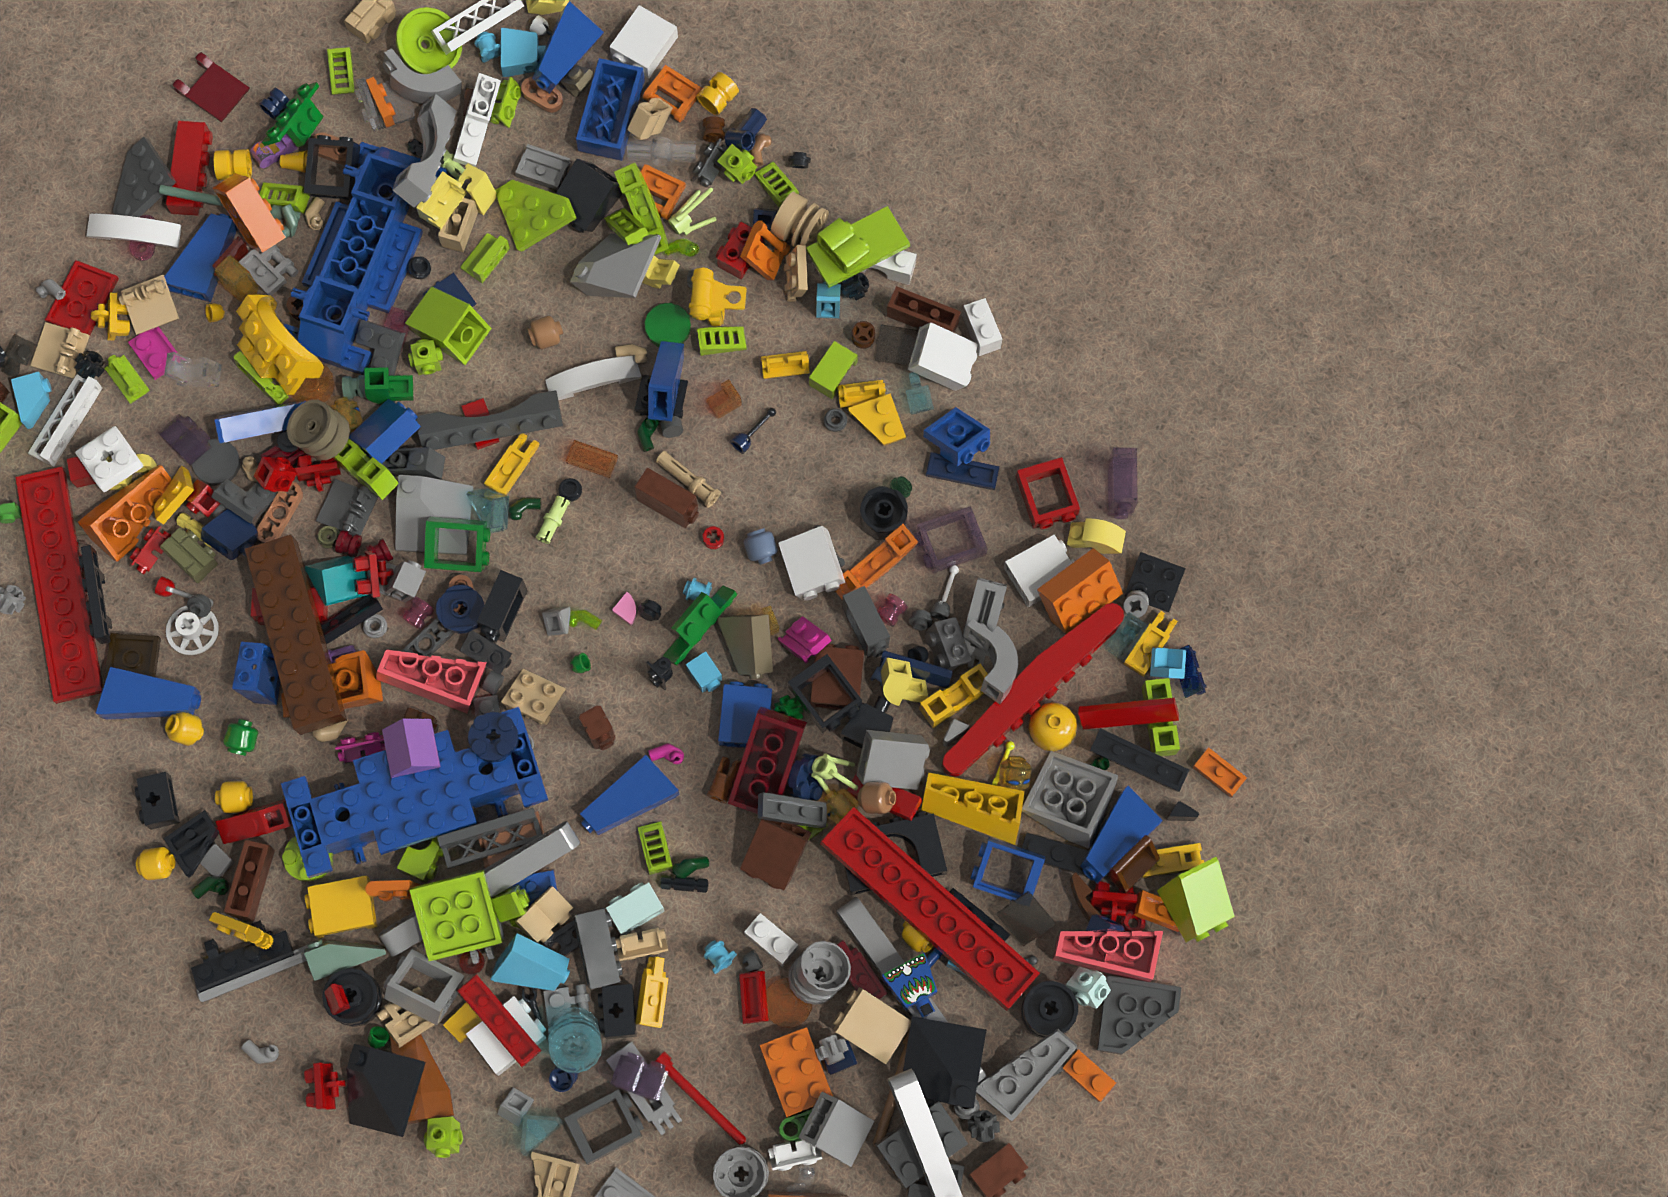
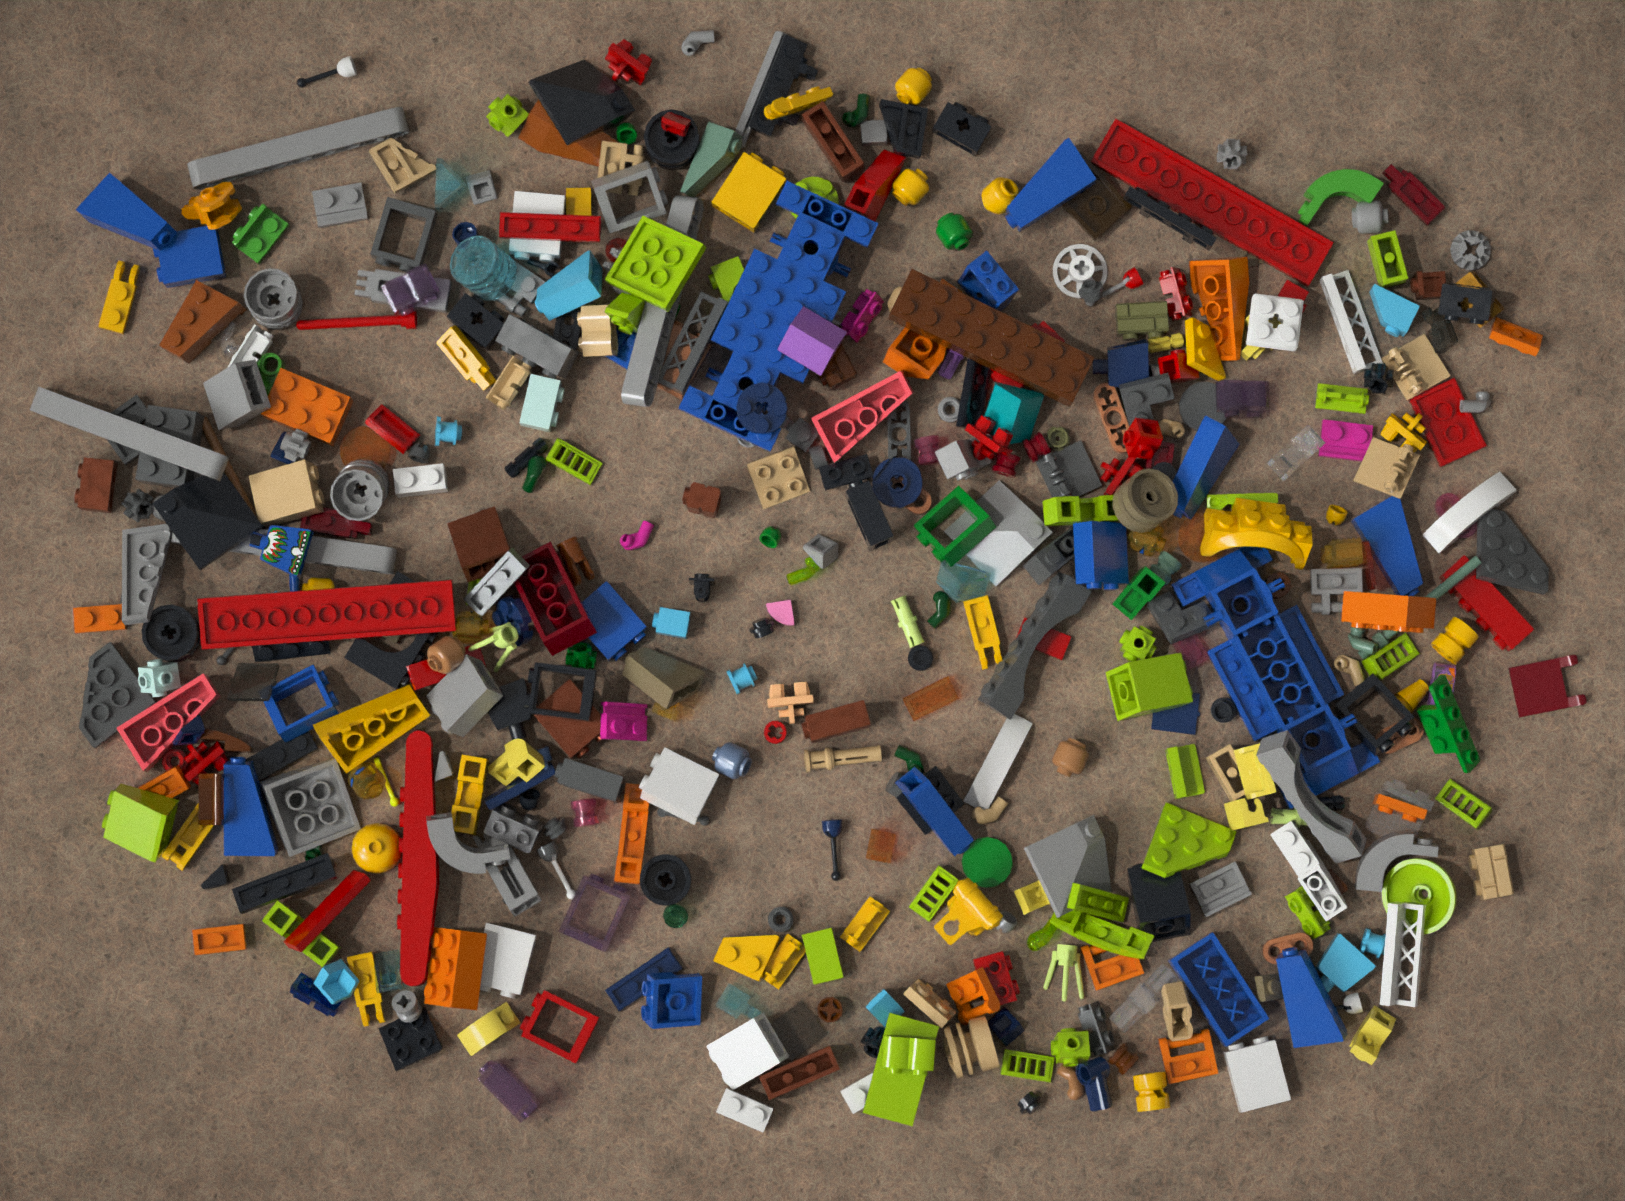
camera: 135 degrees right, 10 degrees up
(274, 103) = (1481, 723): dark blue wheel -> none
(388, 889) = (720, 241): orange plate -> none
(631, 795) = (629, 479): blue slope -> none
(688, 553) = (801, 697): none -> light nougat hips
(696, 621) = (716, 654): green bracket -> none

